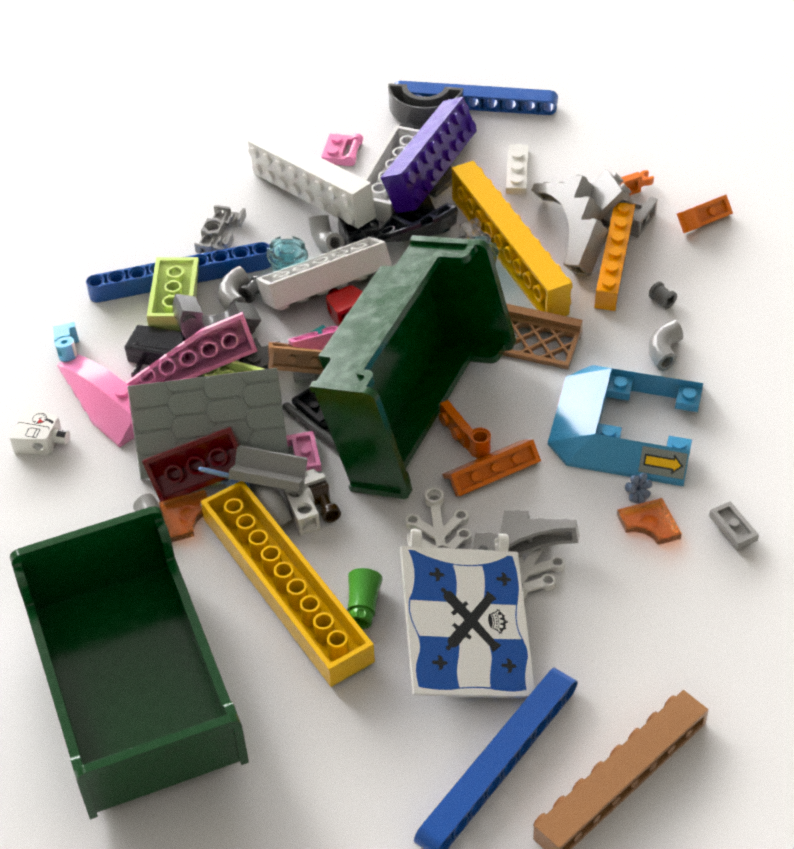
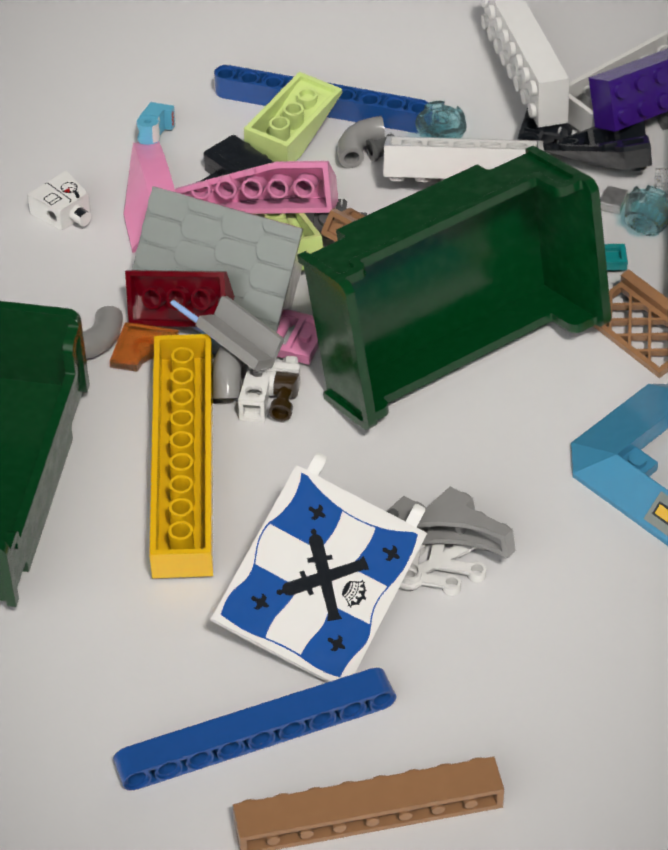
camera: 30 degrees right, 0 degrees up
(191, 317) = (281, 146): dark grey brick -> none
(214, 238) = (387, 80): light grey piece -> none
(322, 234) = (502, 118): light grey cylinder -> none
(336, 148) = (593, 31): bright pink plate -> none
(363, 595) = (246, 506): bright green plant -> none
(434, 500) = (399, 447): white plant -> none
(475, 440) = (490, 403): orange plate -> none
(493, 466) = (488, 441): orange panel -> none
(638, 488) = (627, 536): sand blue plant -> none
(650, 519) = (616, 574): clear orange tile -> none

